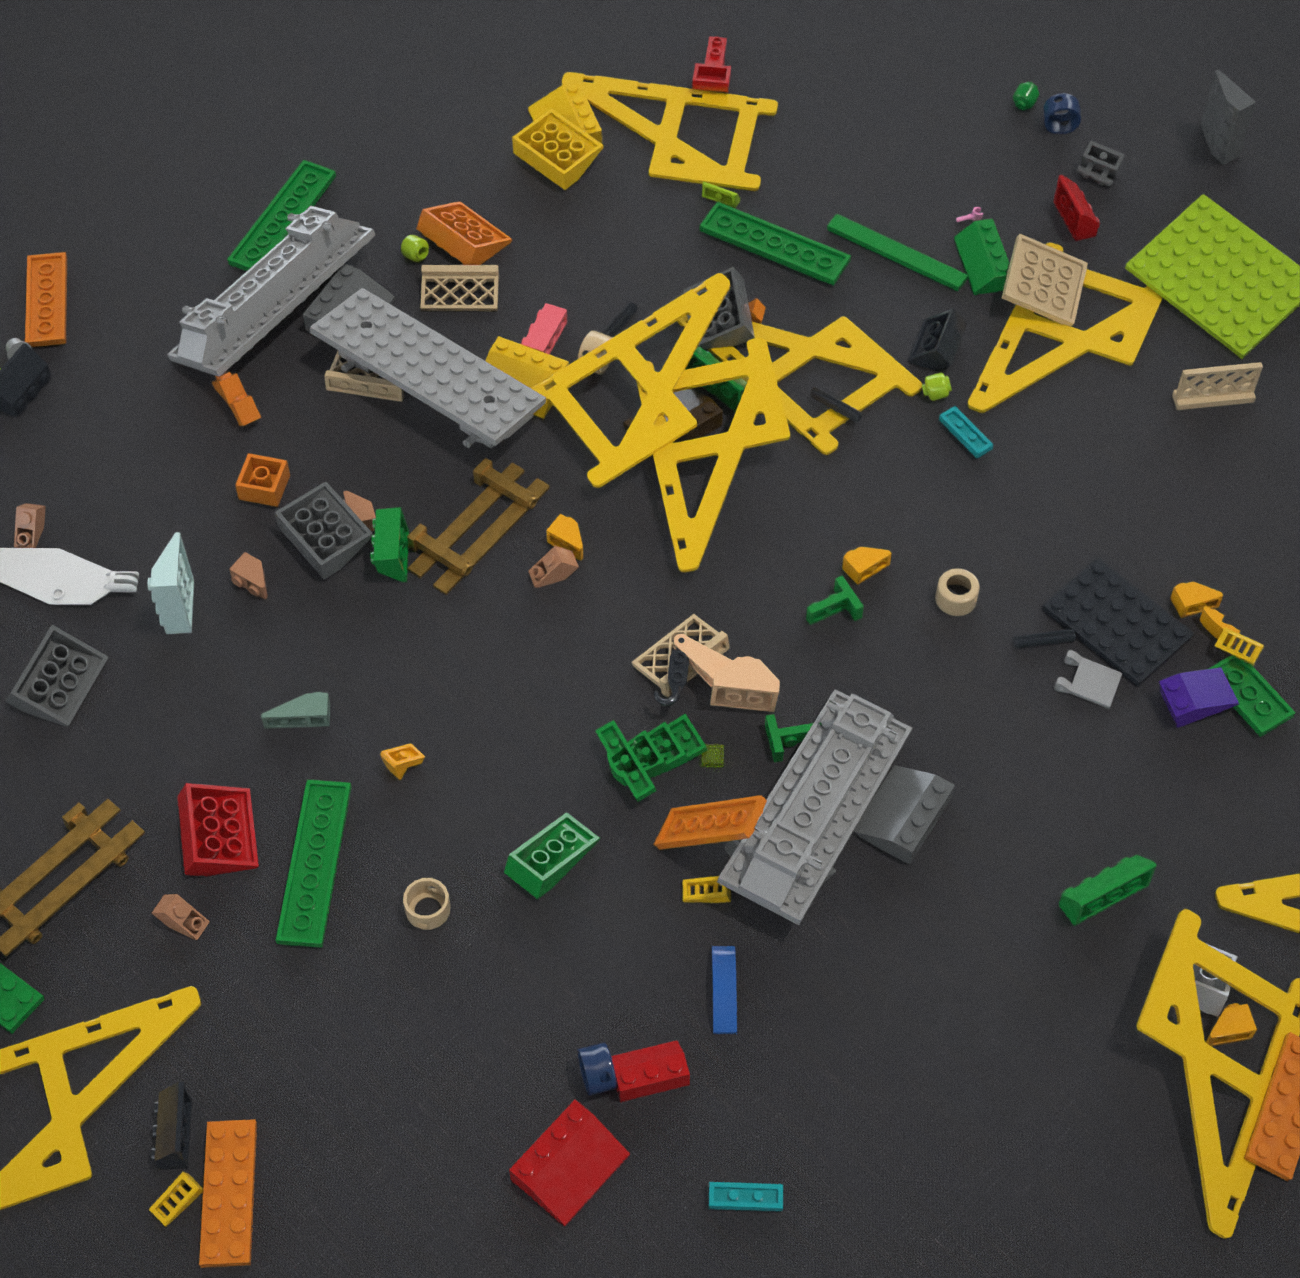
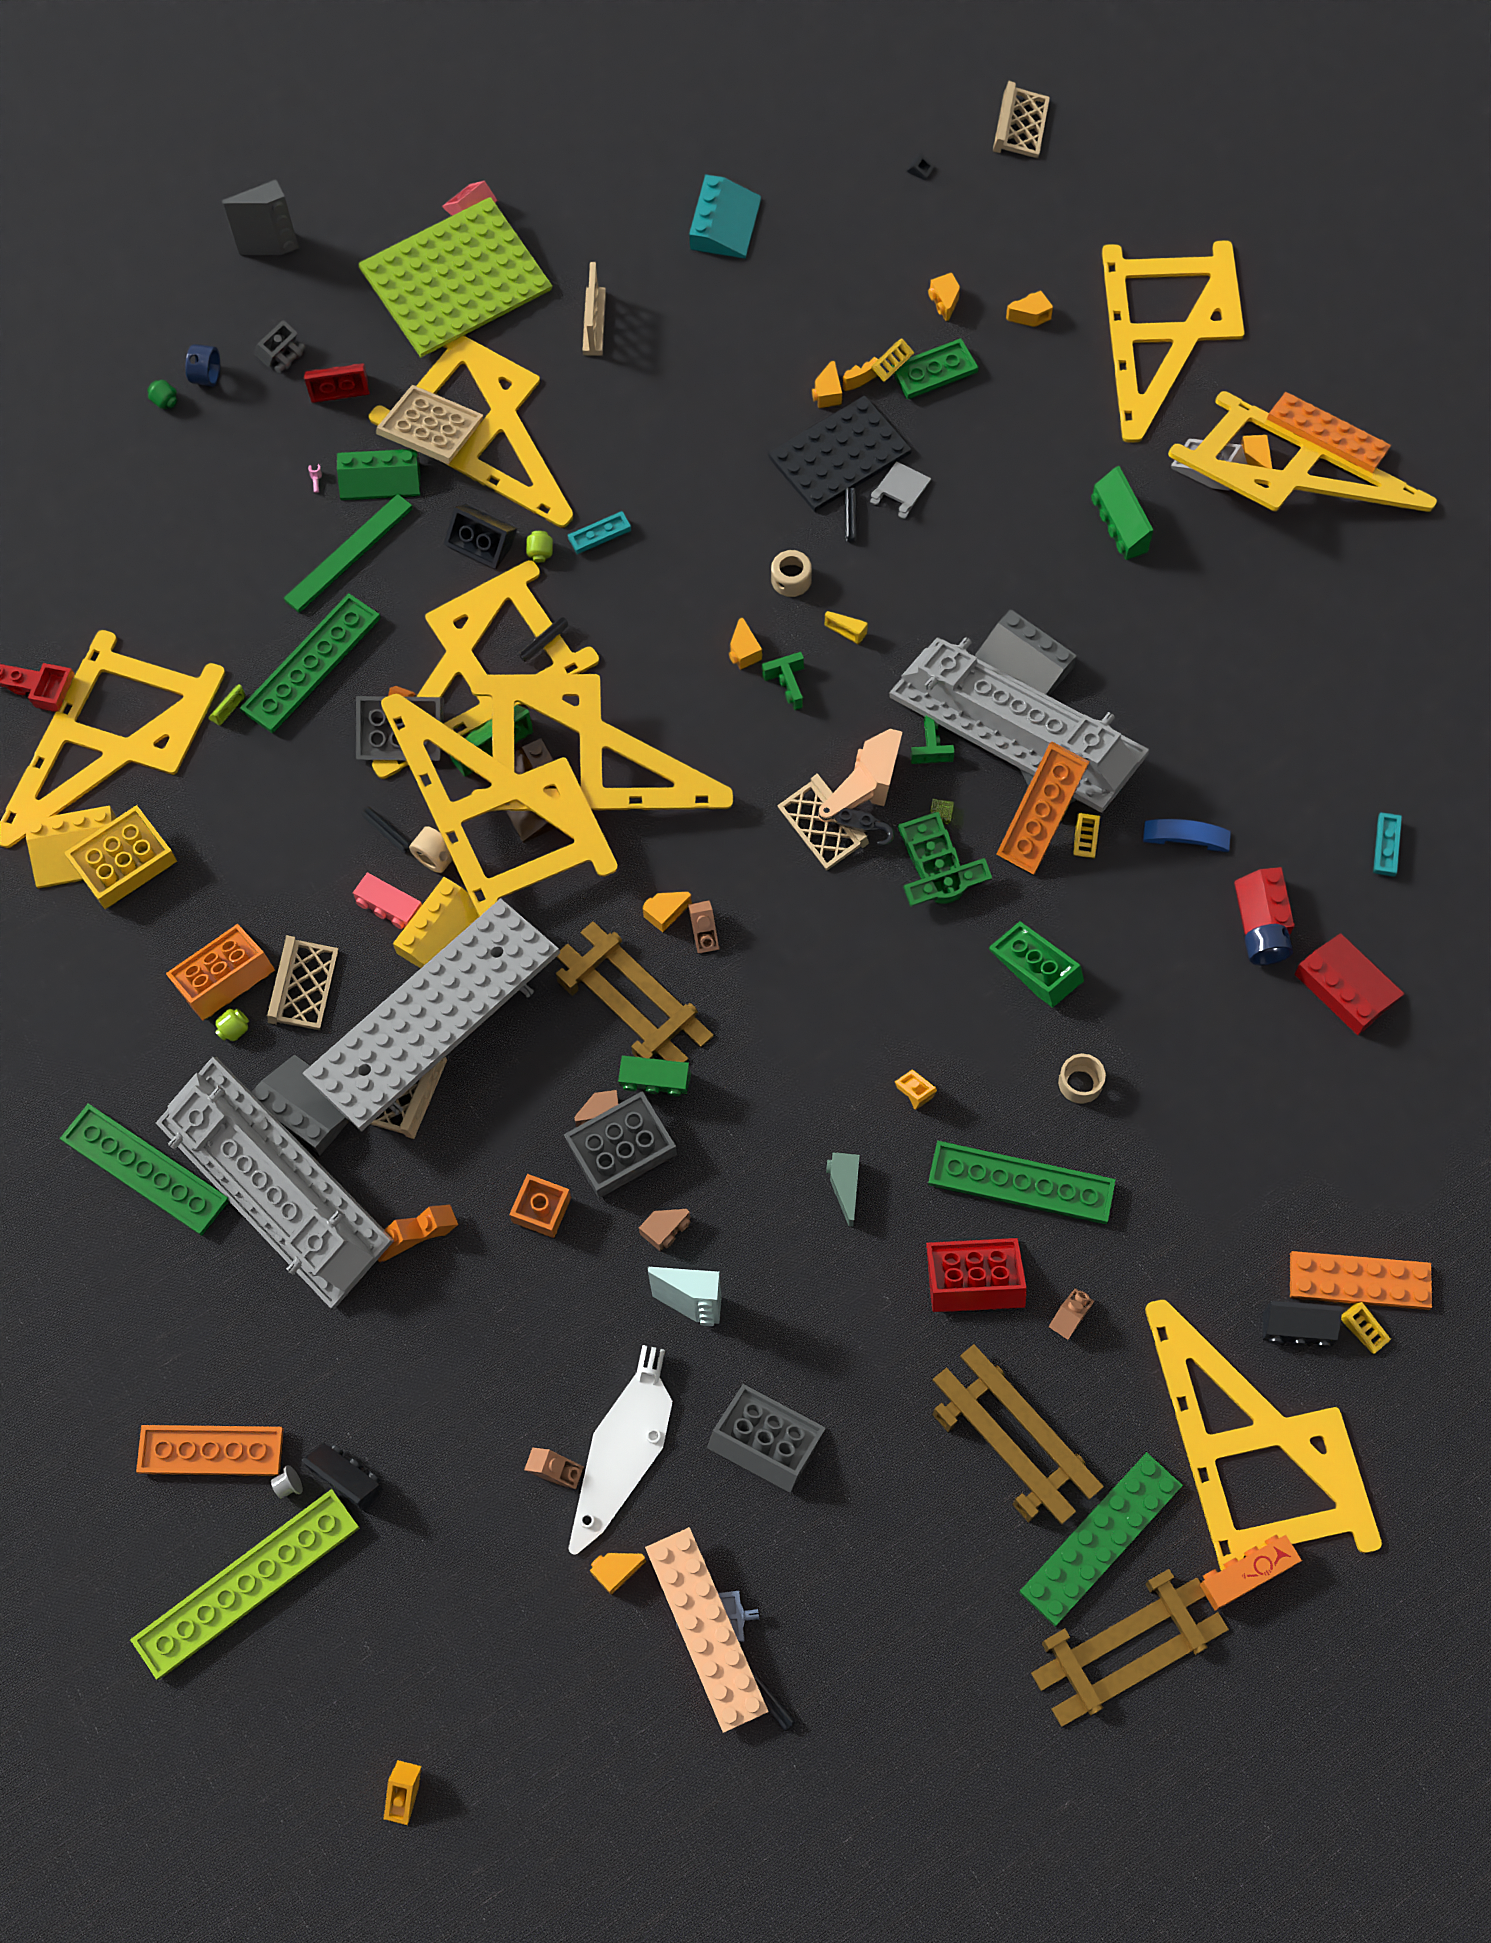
camera: 80 degrees left, 10 degrees up
(905, 650) = (848, 627): none -> yellow slope
(1197, 695) = (935, 406): dark purple slope -> none

